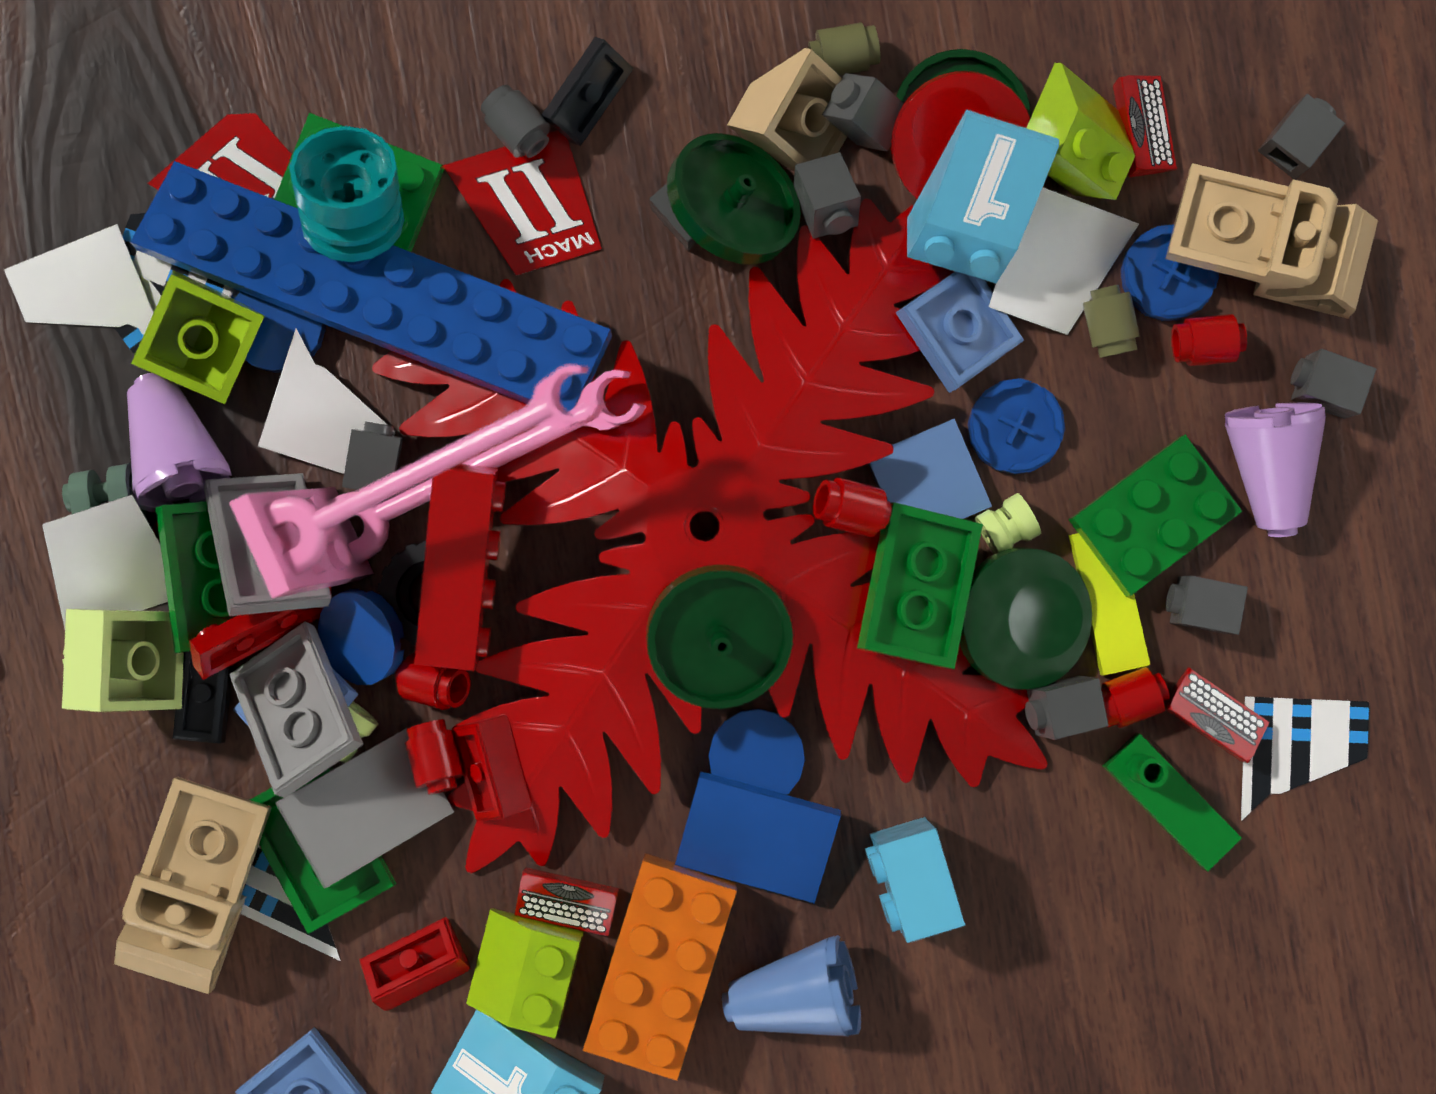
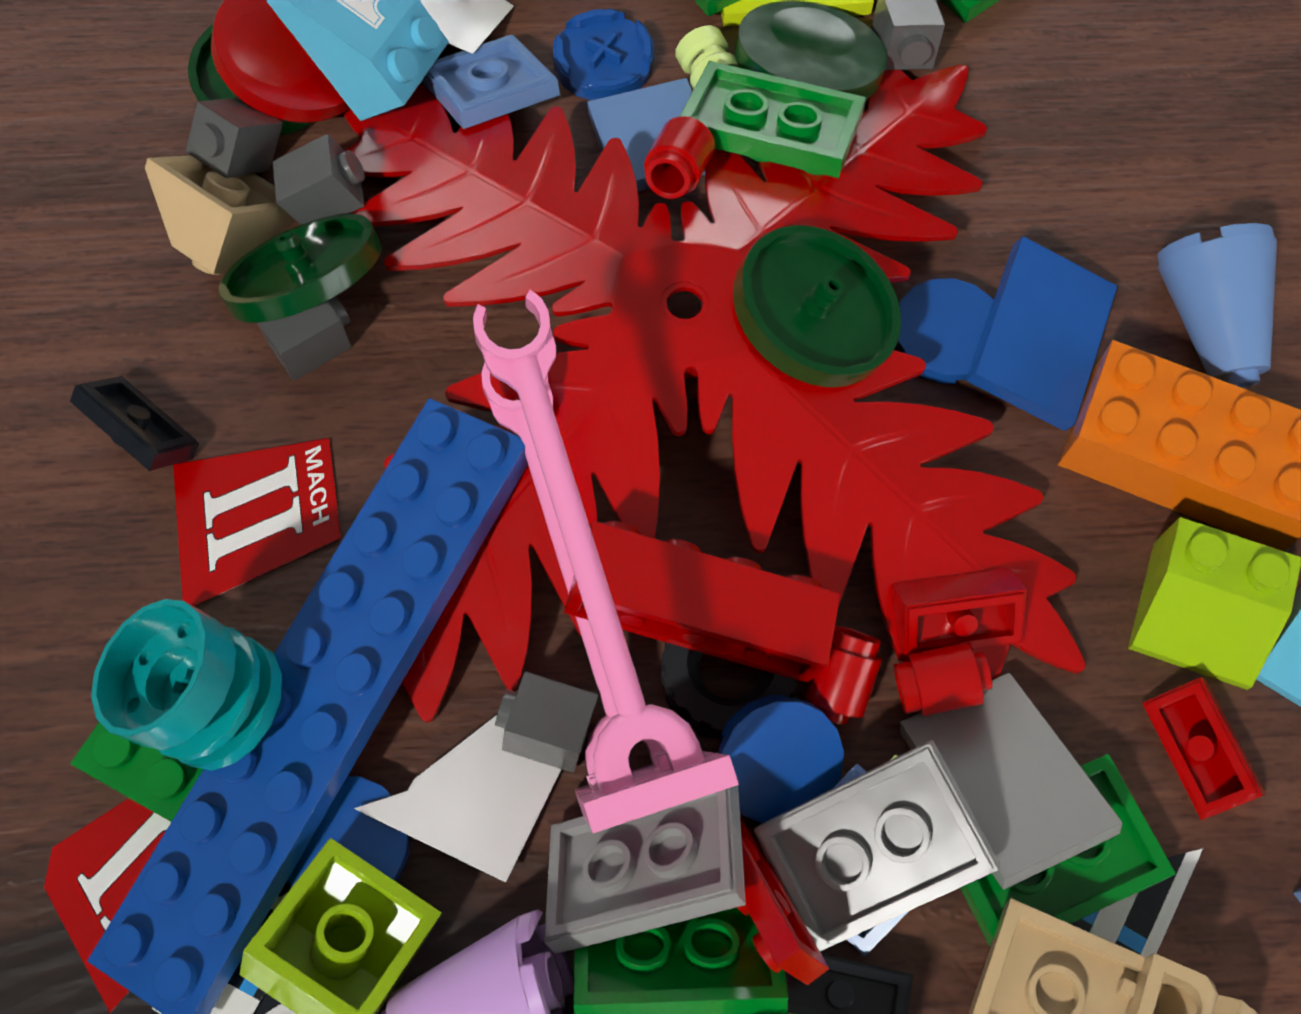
camera: 85 degrees left, 20 degrees down
(515, 121) = (149, 505): dark grey brick -> none
(566, 901) = (1119, 552): slope -> none
(848, 47) = (155, 138): olive brick -> none
(916, 878) = (1094, 167): medium azure piece -> none

